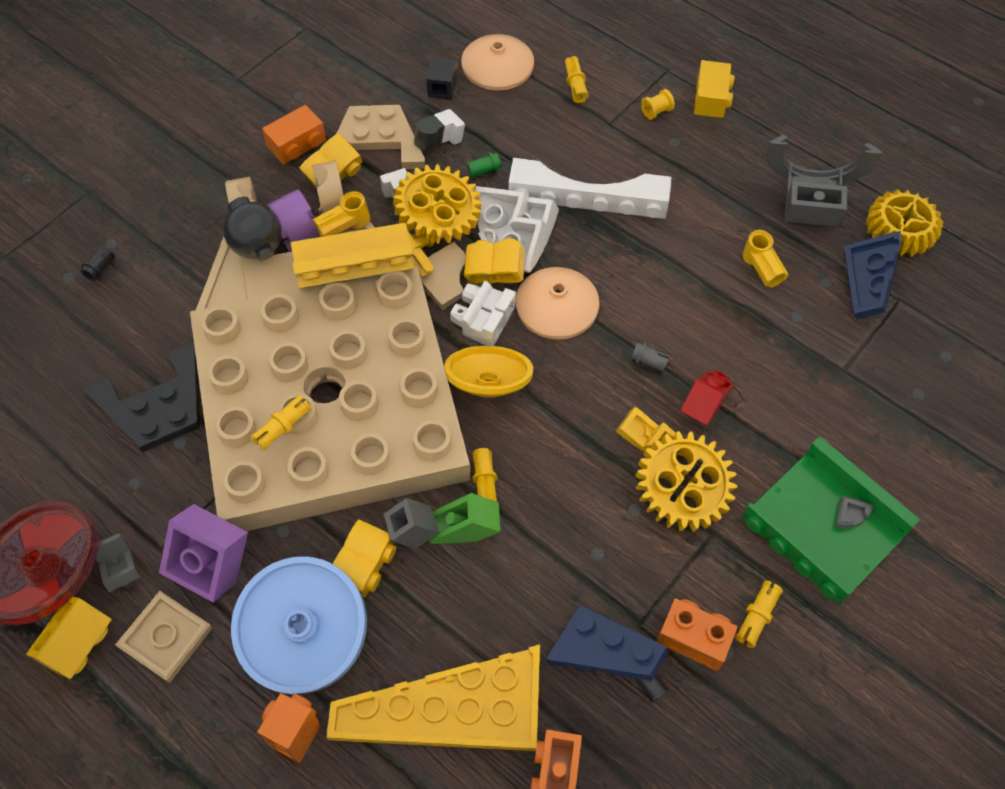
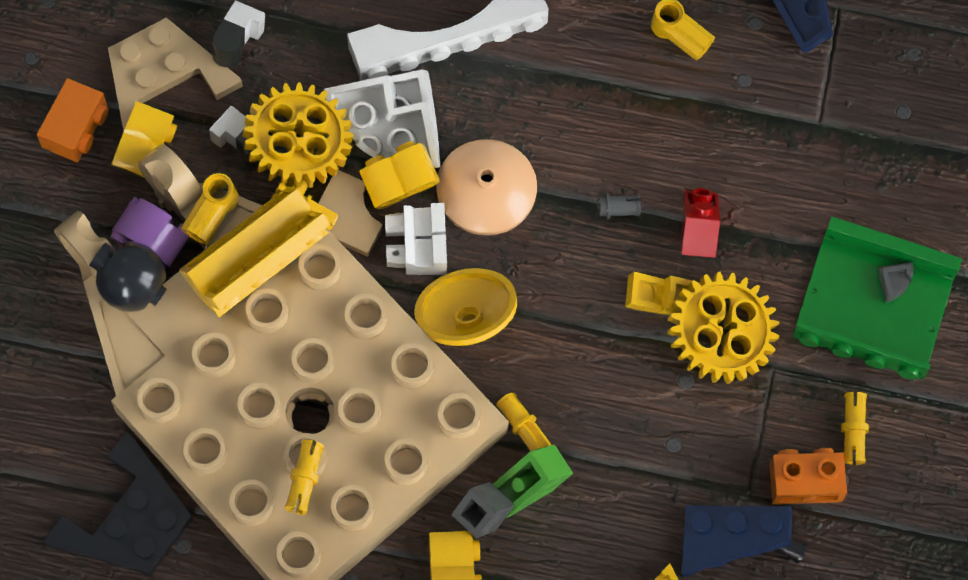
camera: 30 degrees left, 10 degrees up
(484, 165) = (312, 53): green pin -> none

